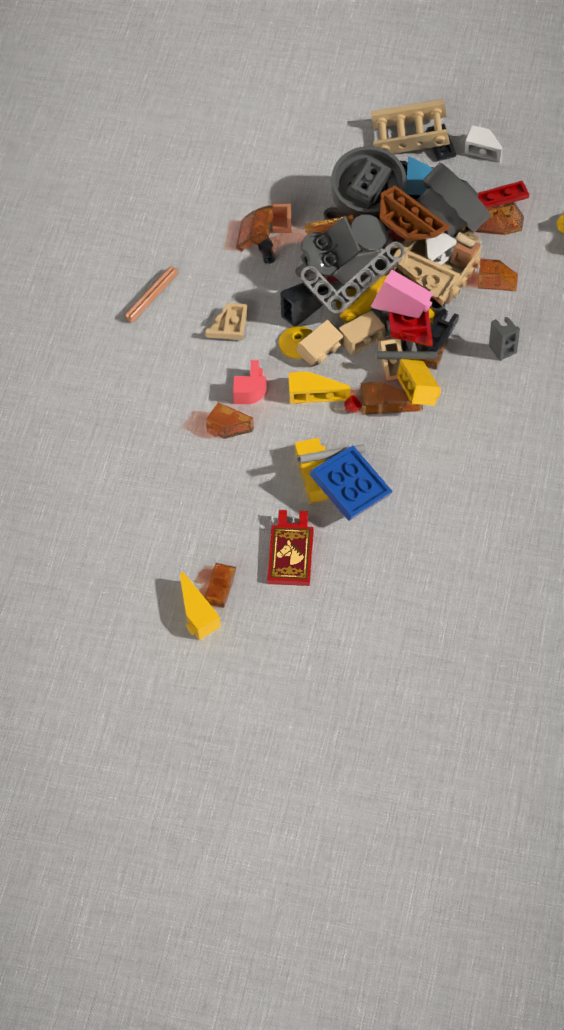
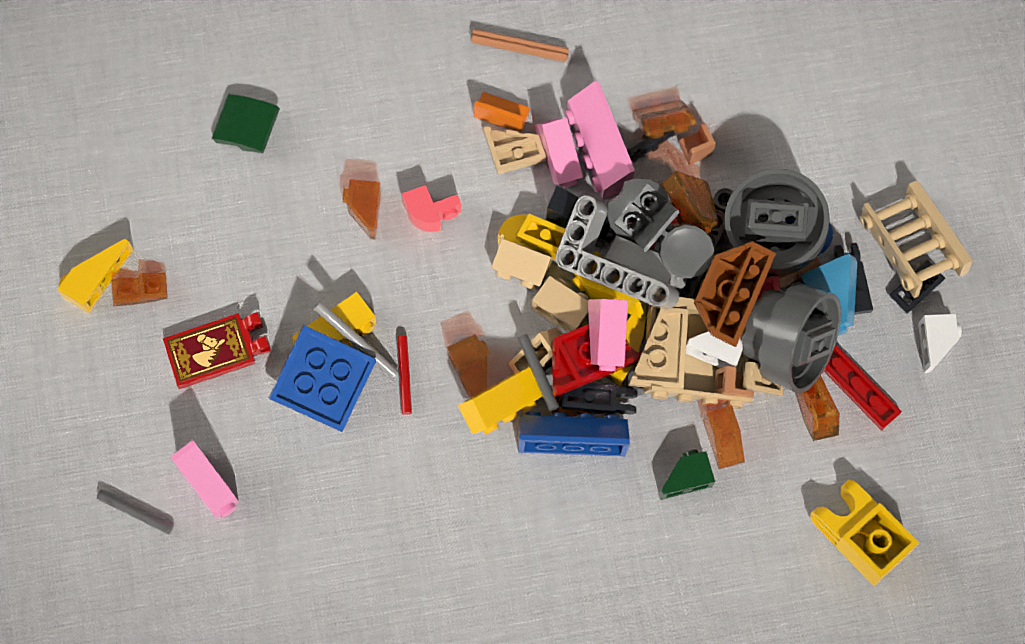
camera: 60 degrees right, 15 degrees up
(123, 474) = (245, 123): none -> dark green slope
(197, 320) = (501, 112): none -> orange panel
(246, 290) = (560, 151): none -> bright pink slope
(253, 266) = (599, 140): none -> bright pink slope
(310, 319) = (542, 235): none -> yellow slope
(313, 388) = (451, 274): yellow slope -> none
(352, 404) = (457, 335): red hinge -> none
(367, 442) = (404, 375): none -> red bar
(392, 581) = (205, 480): none -> bright pink slope
(392, 640) = (135, 511): none -> flat silver bar
(459, 354) = (573, 434): none -> blue slope
(504, 339) = (615, 484): dark grey hinge -> none
(514, 303) = (689, 475): none -> dark green slope

